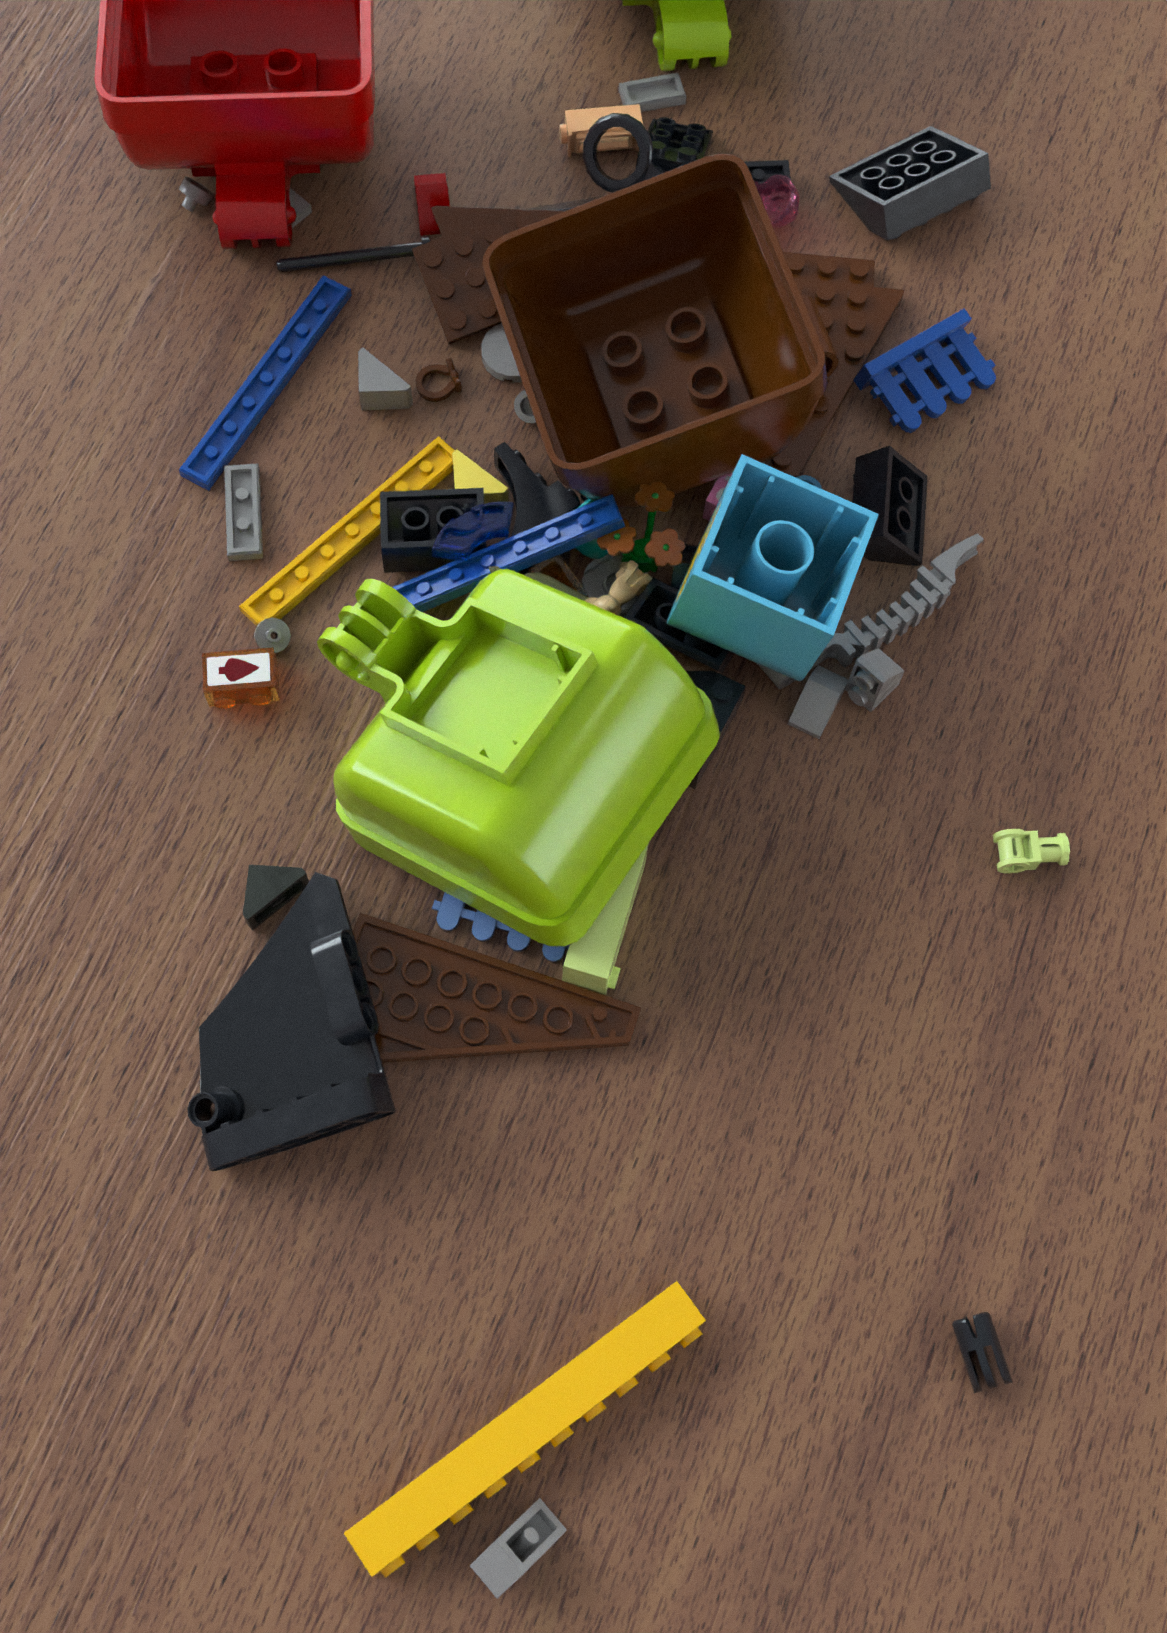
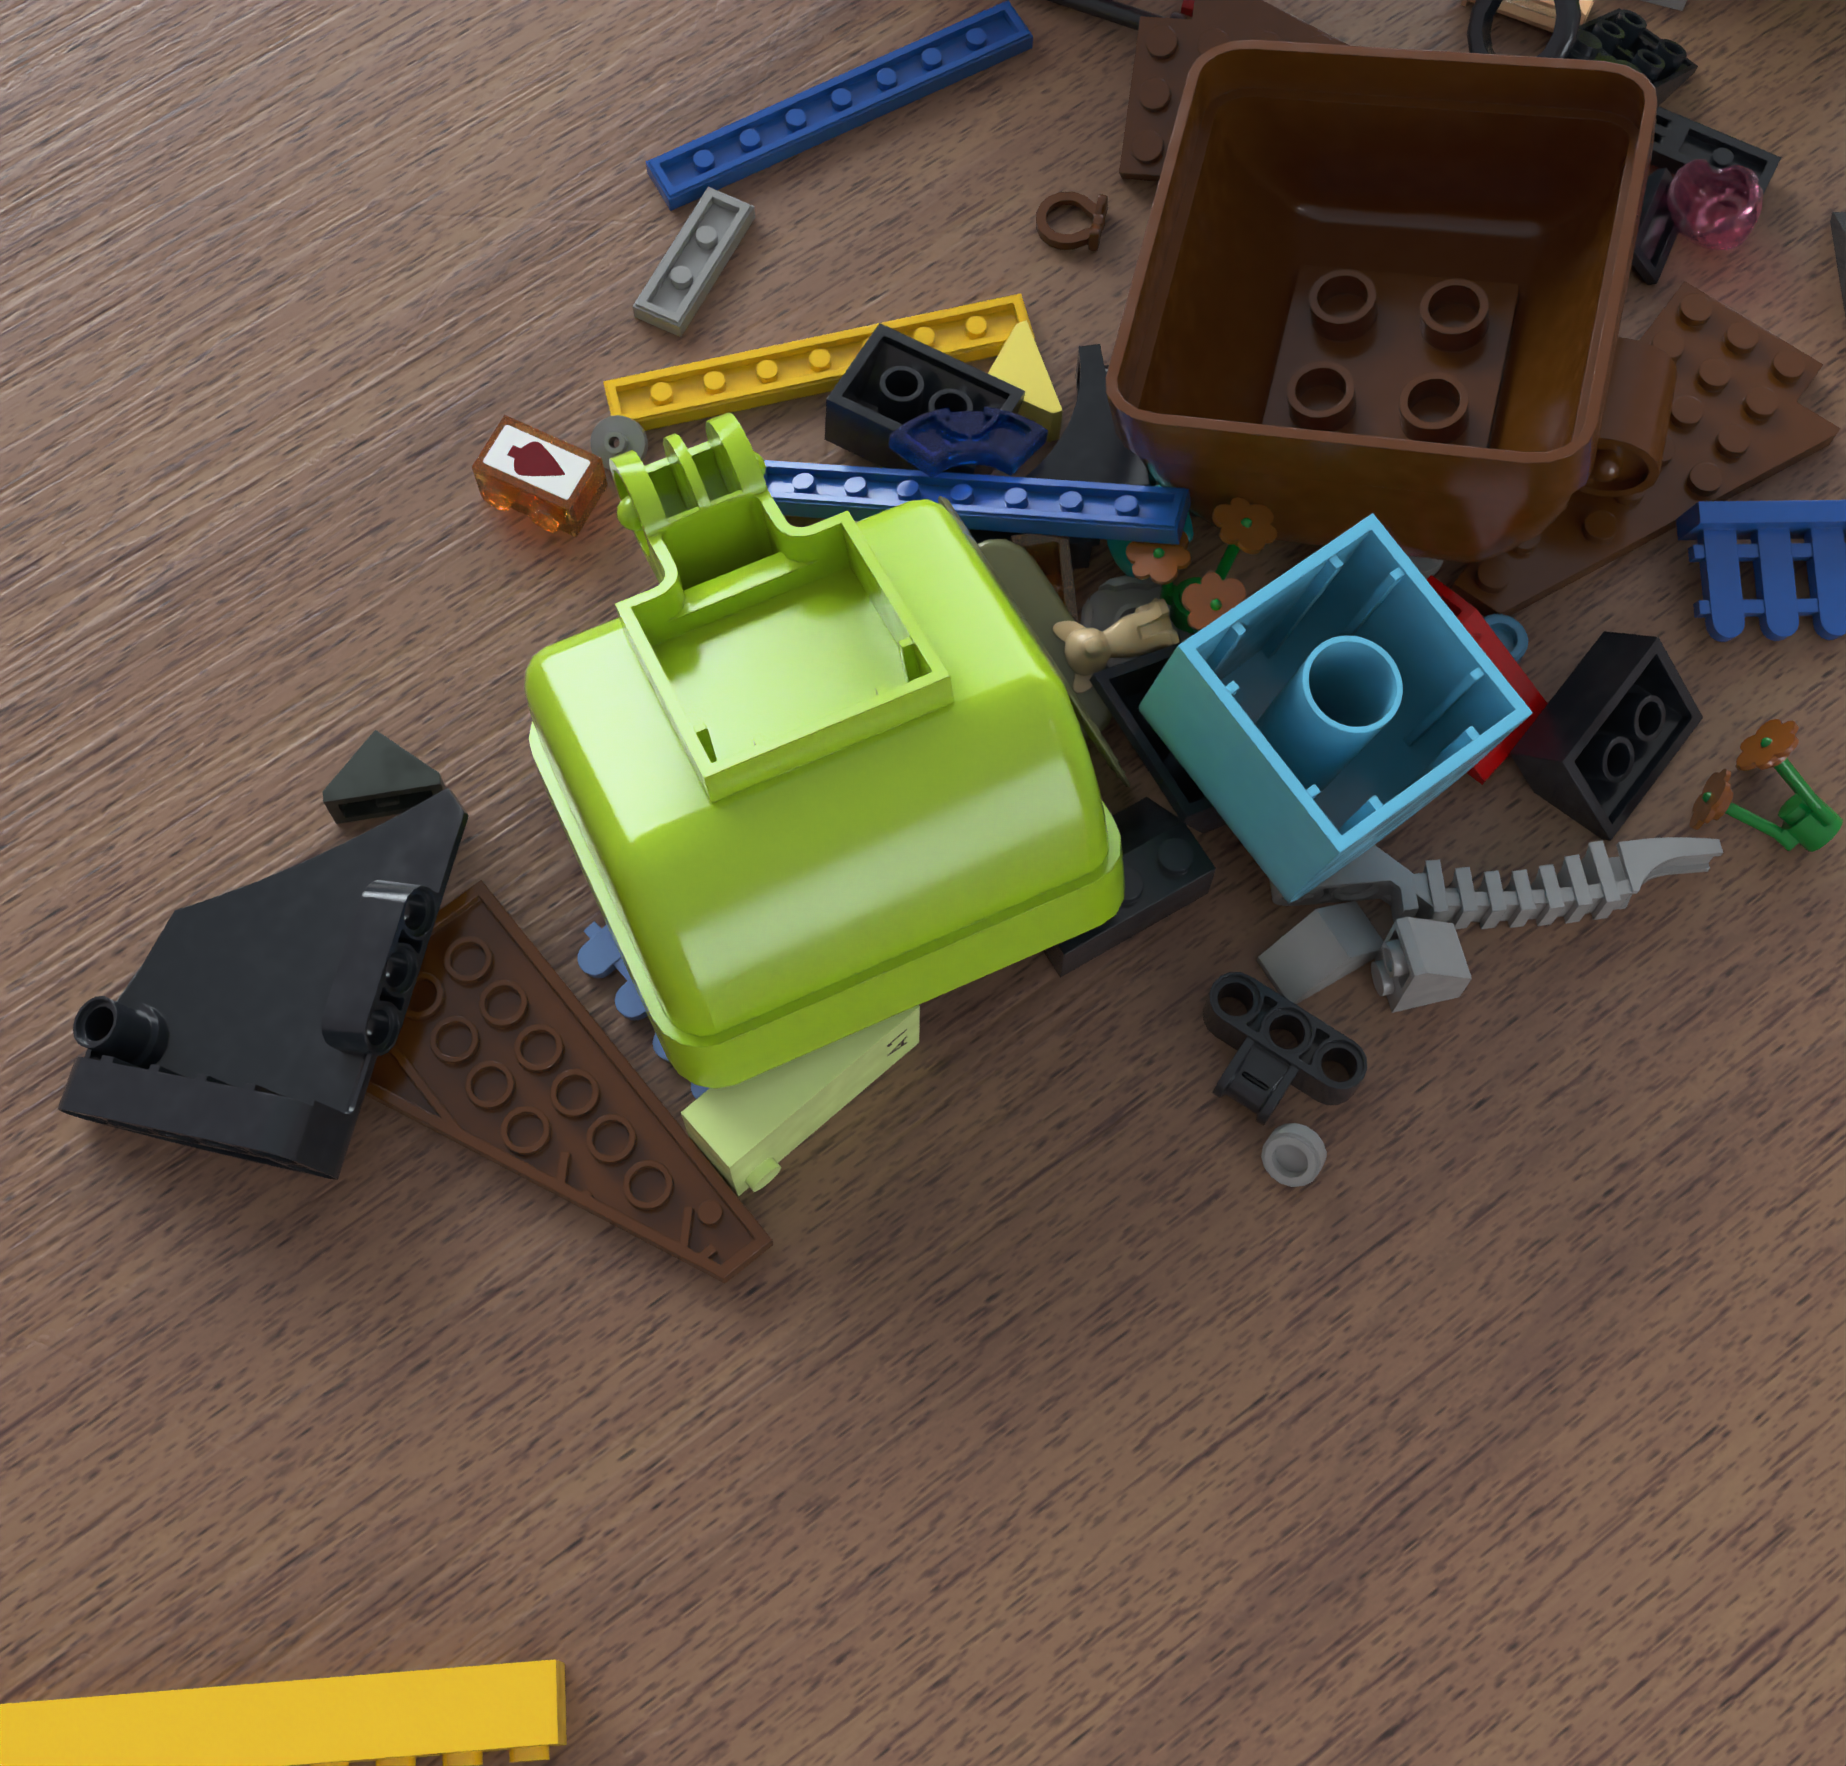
camera: 35 degrees right, 0 degrees up
(381, 386) = (981, 184): light grey slope -> none
(830, 776) = (1260, 1068): none -> black piece
(871, 810) = (1293, 1154): none -> light grey tile
(1007, 498) = (1804, 814): none -> plant
(1025, 851) = (1496, 1353): yellowish green connector -> none

